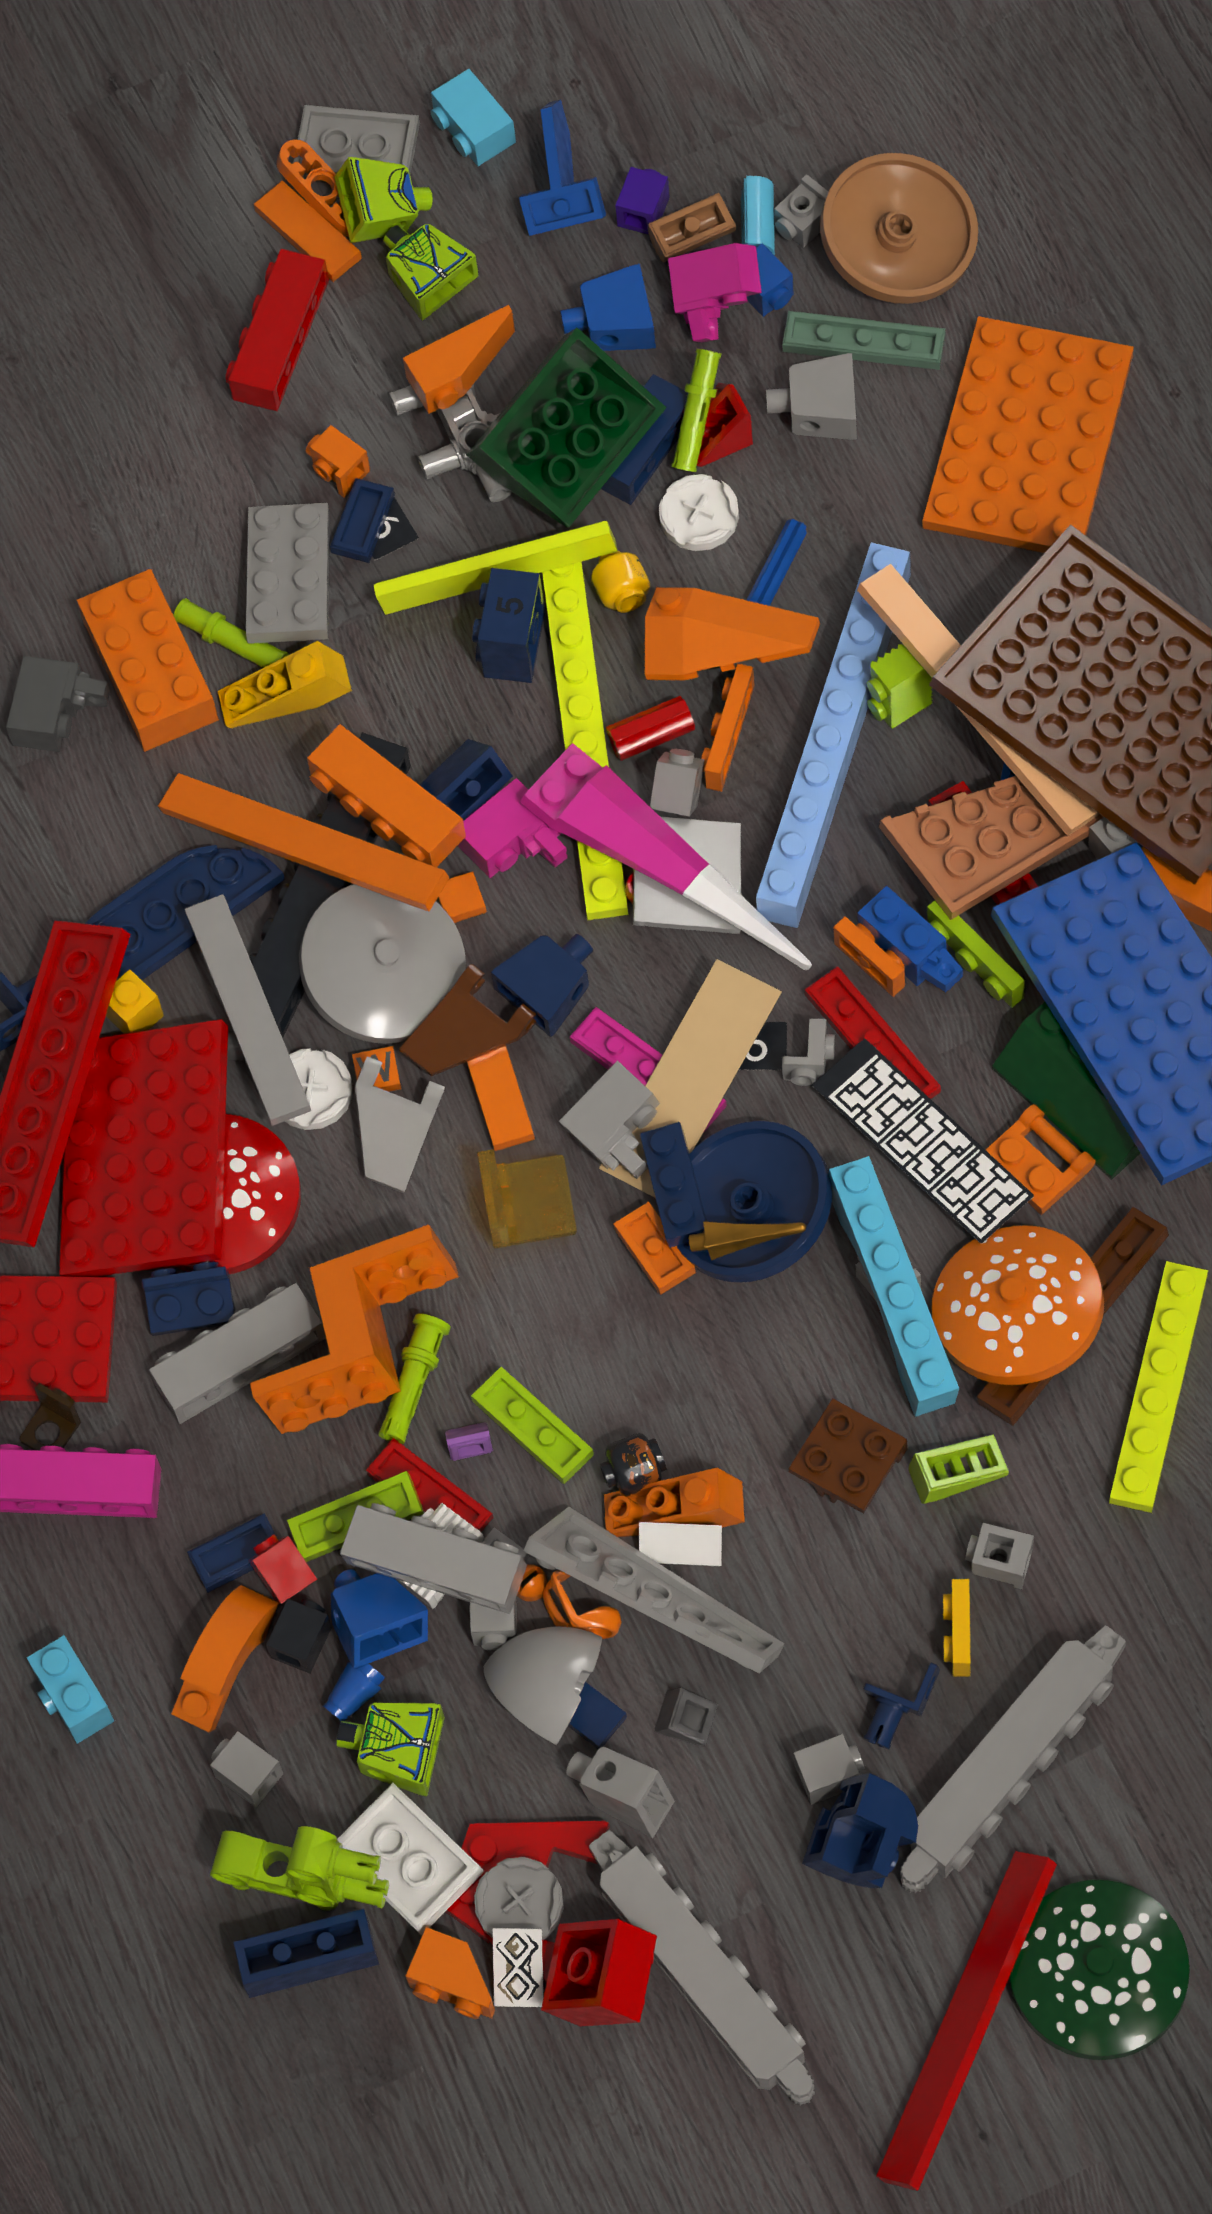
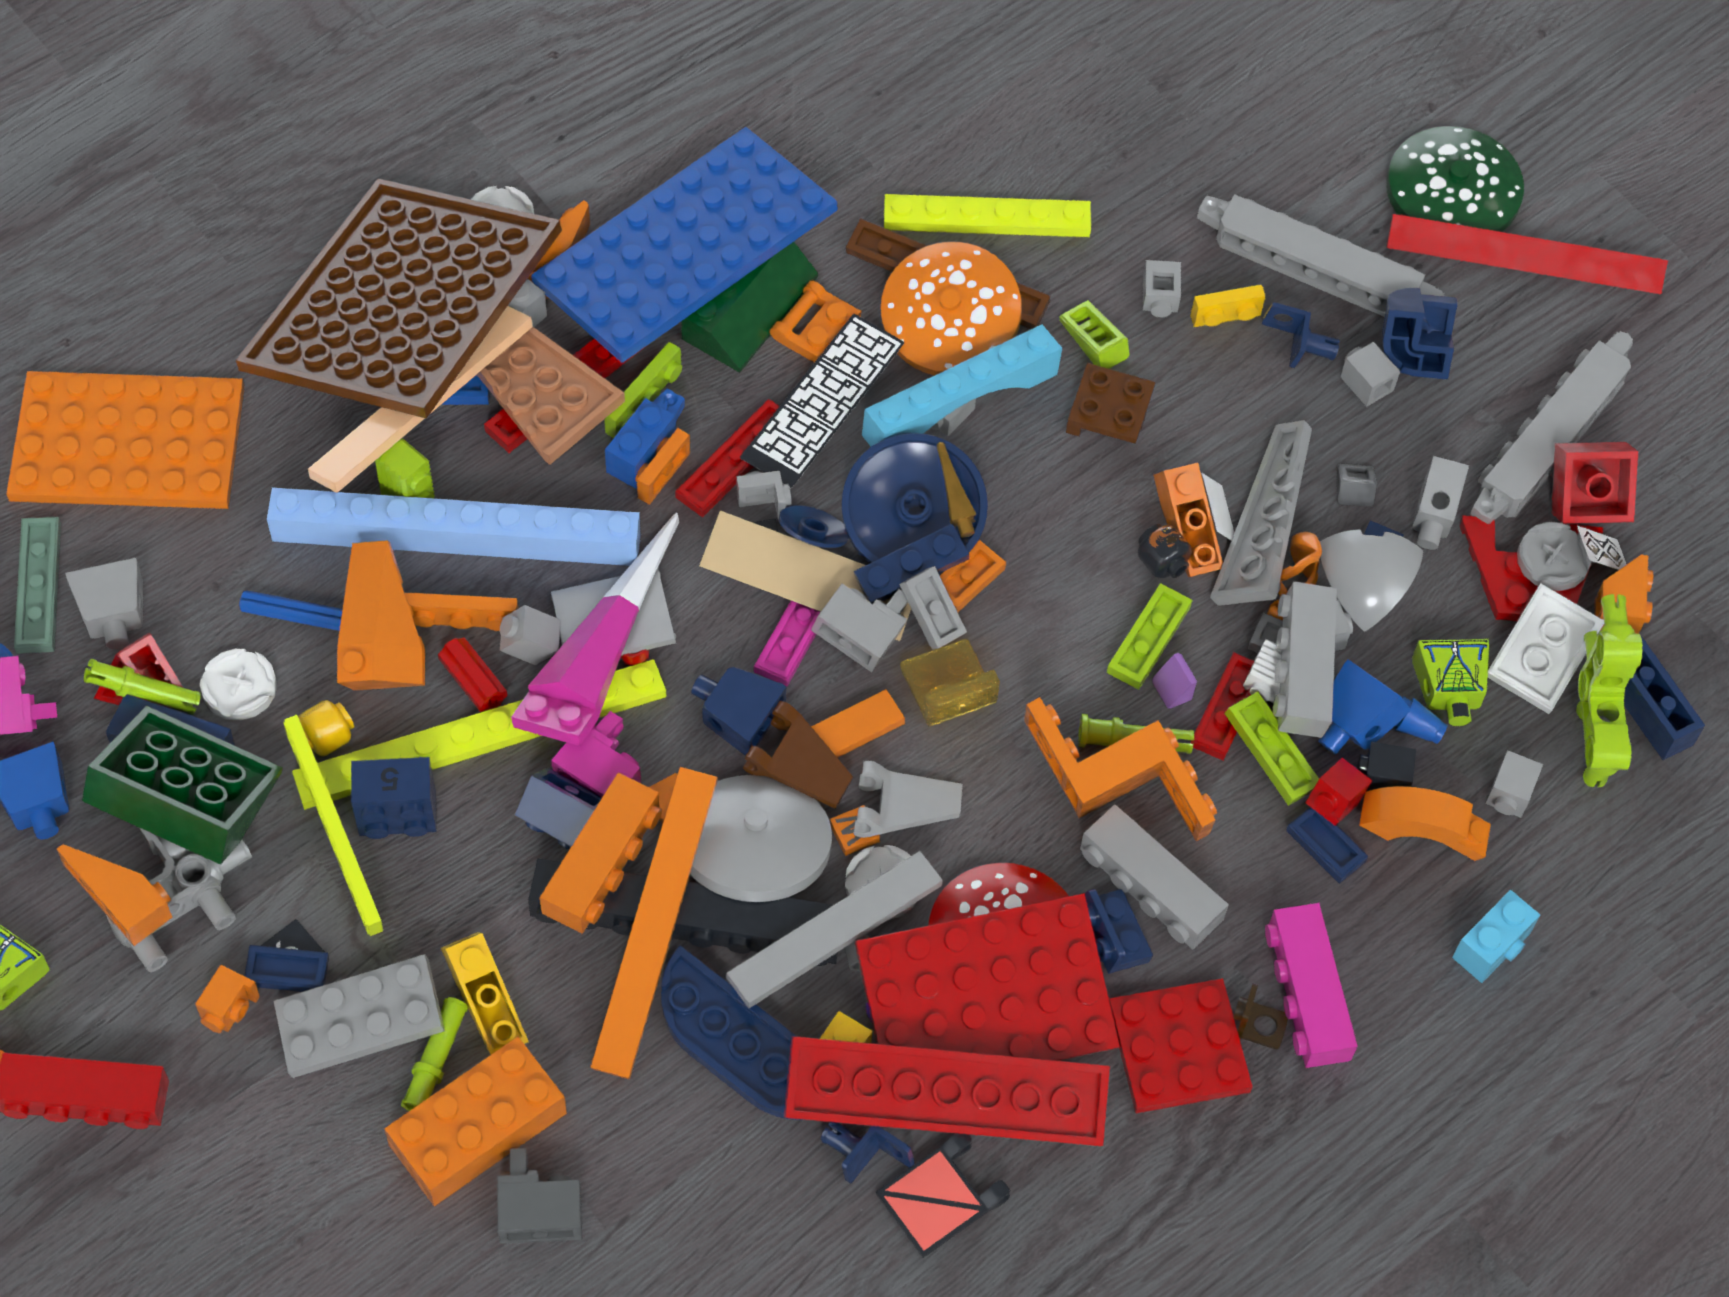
camera: 115 degrees left, 5 degrees down
(614, 1195) = (933, 608): none -> light grey plate
(767, 1086) = (813, 526): none -> dark blue dish

